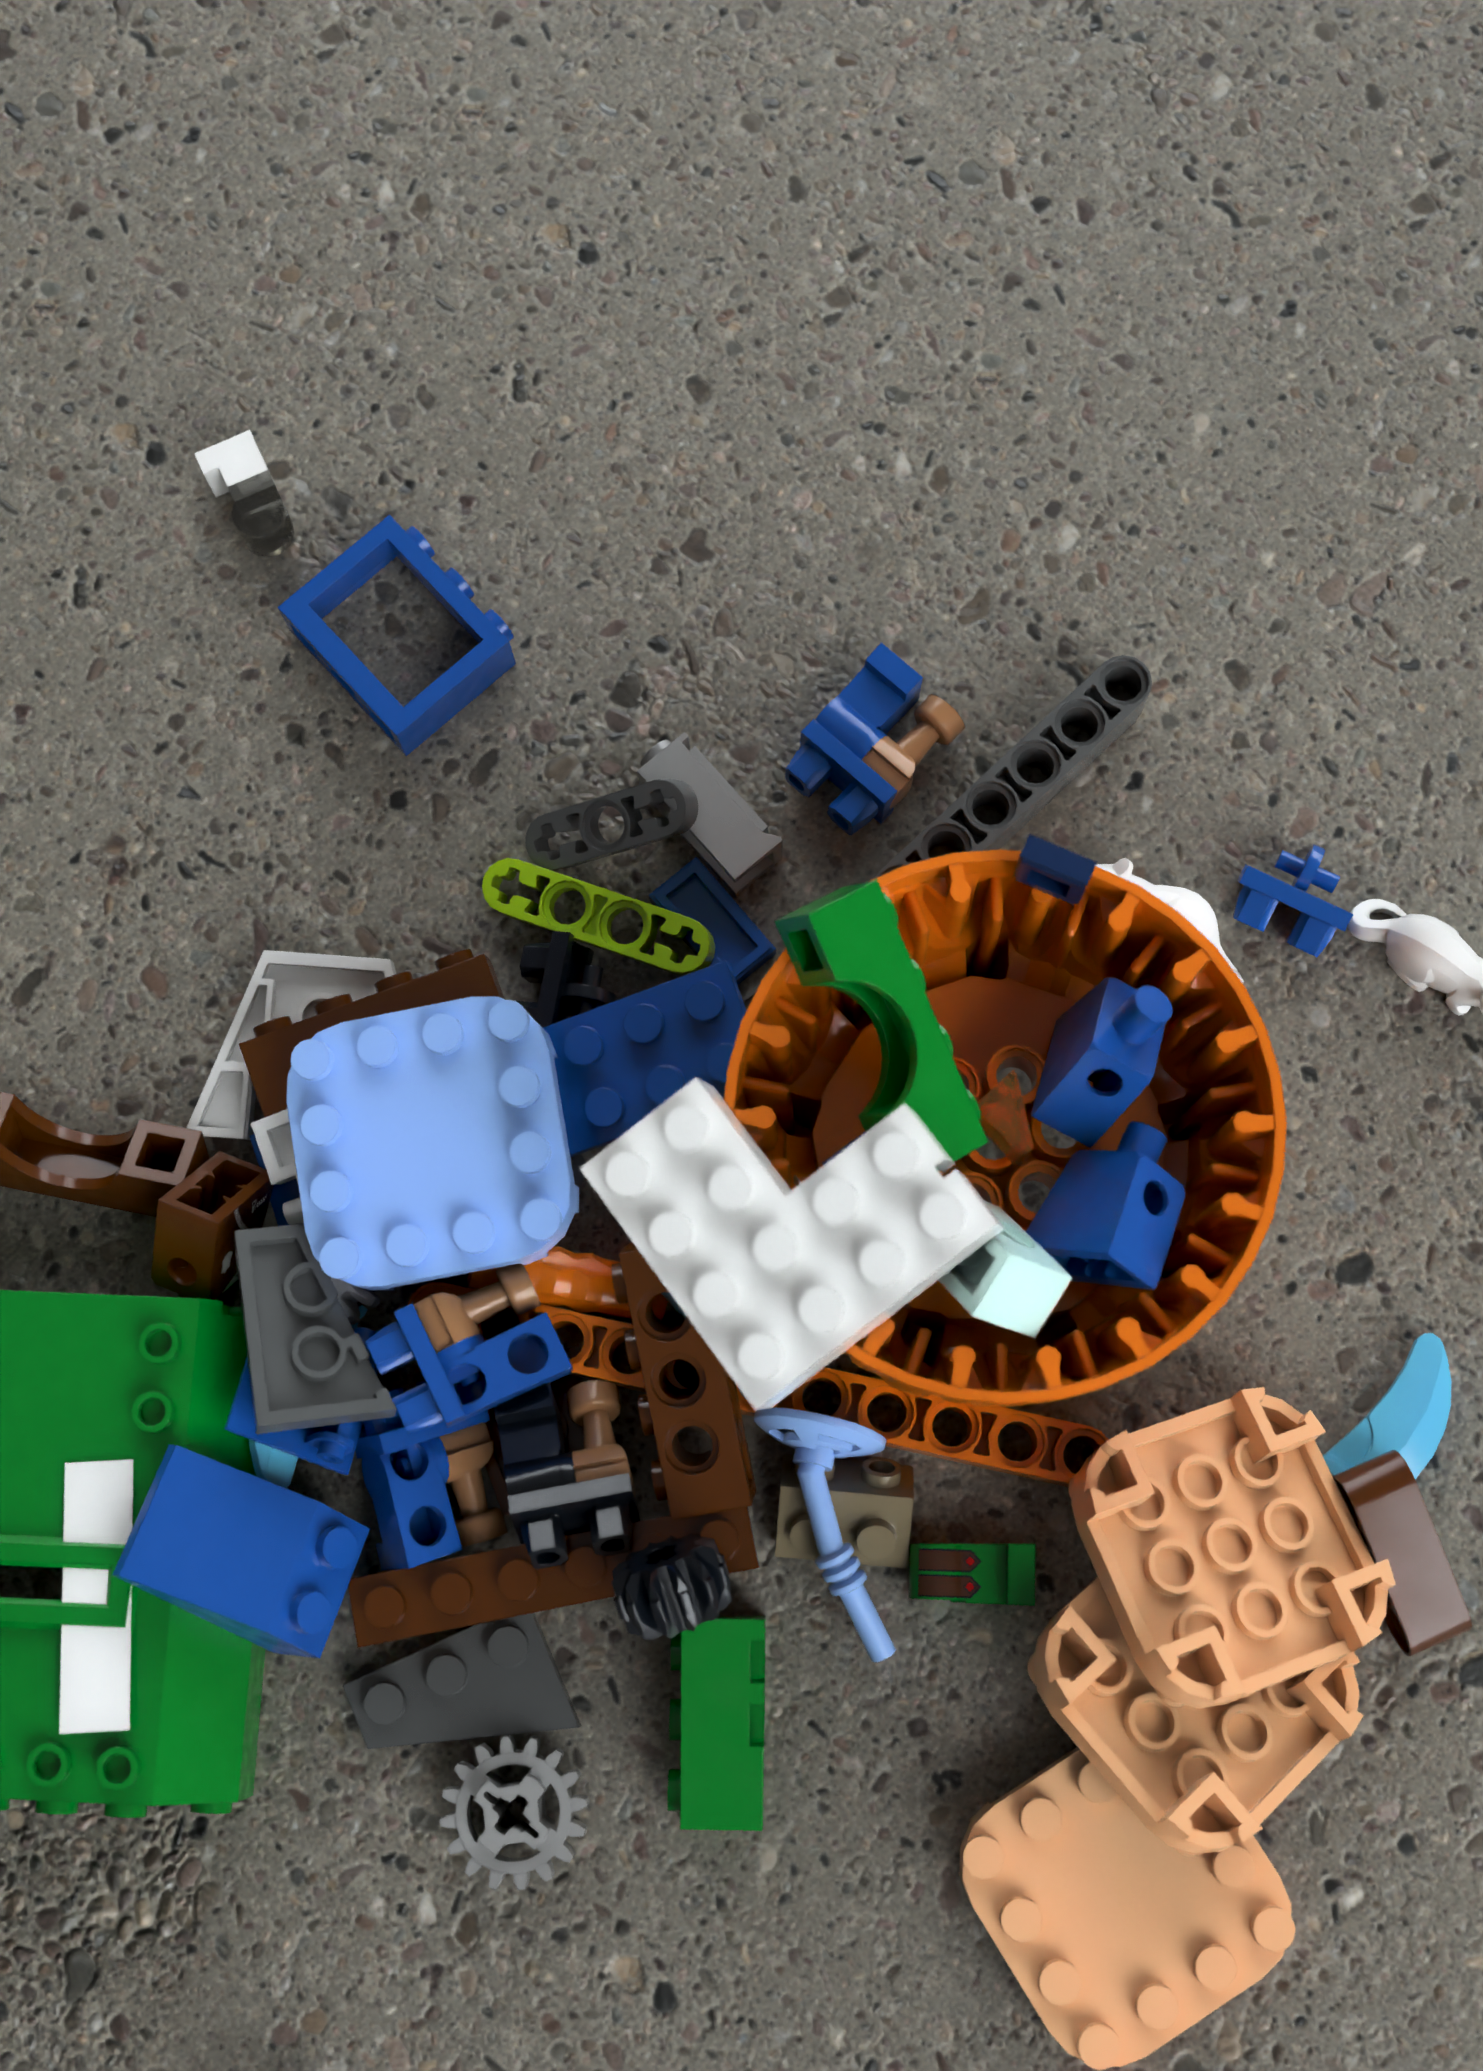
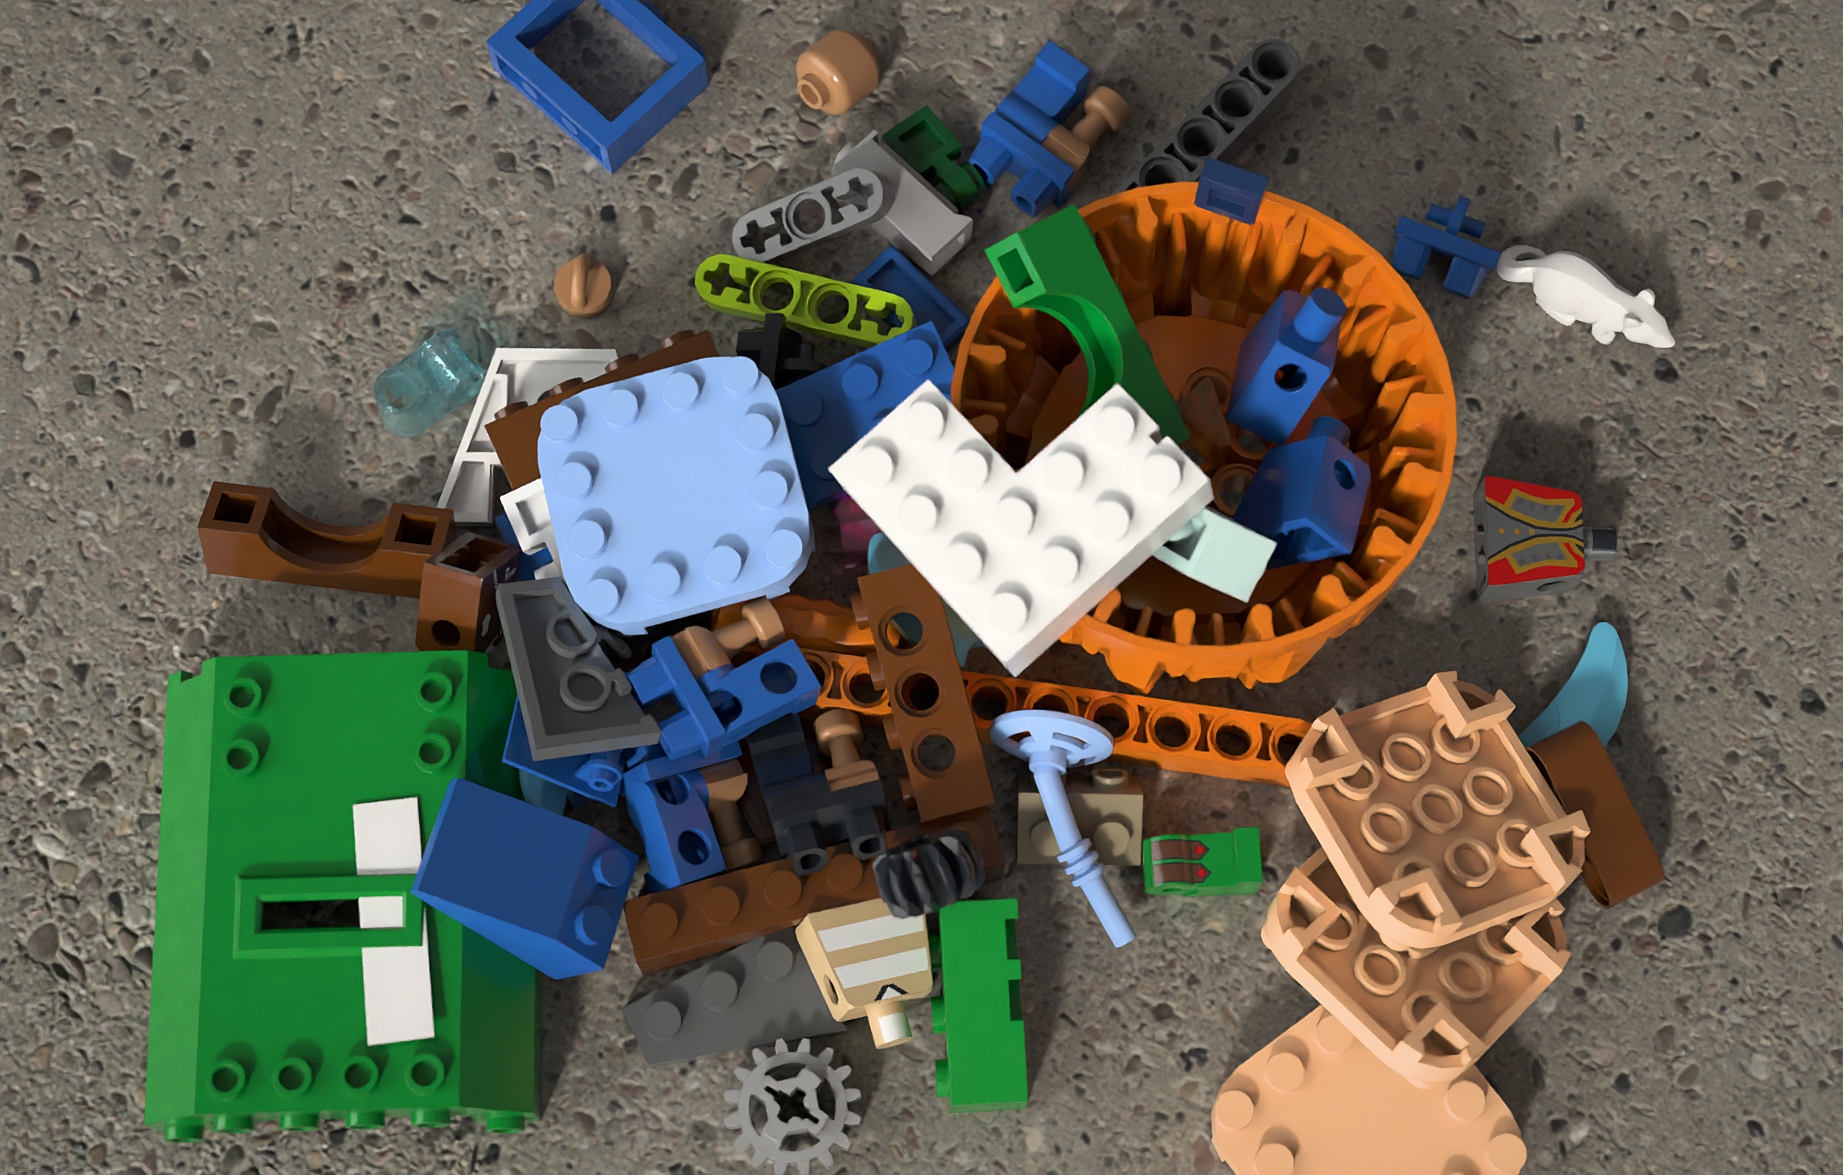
camera: 10 degrees left, 5 degrees down
(195, 977) = (437, 375): none -> clear light blue piece
(365, 882) = (583, 287): none -> medium nougat tile
(605, 1669) = (869, 965): none -> tan torso
(652, 660) = (837, 72): none -> medium nougat head
(741, 754) = (932, 153): none -> dark green plate
(1360, 1236) = (1532, 540): none -> torso

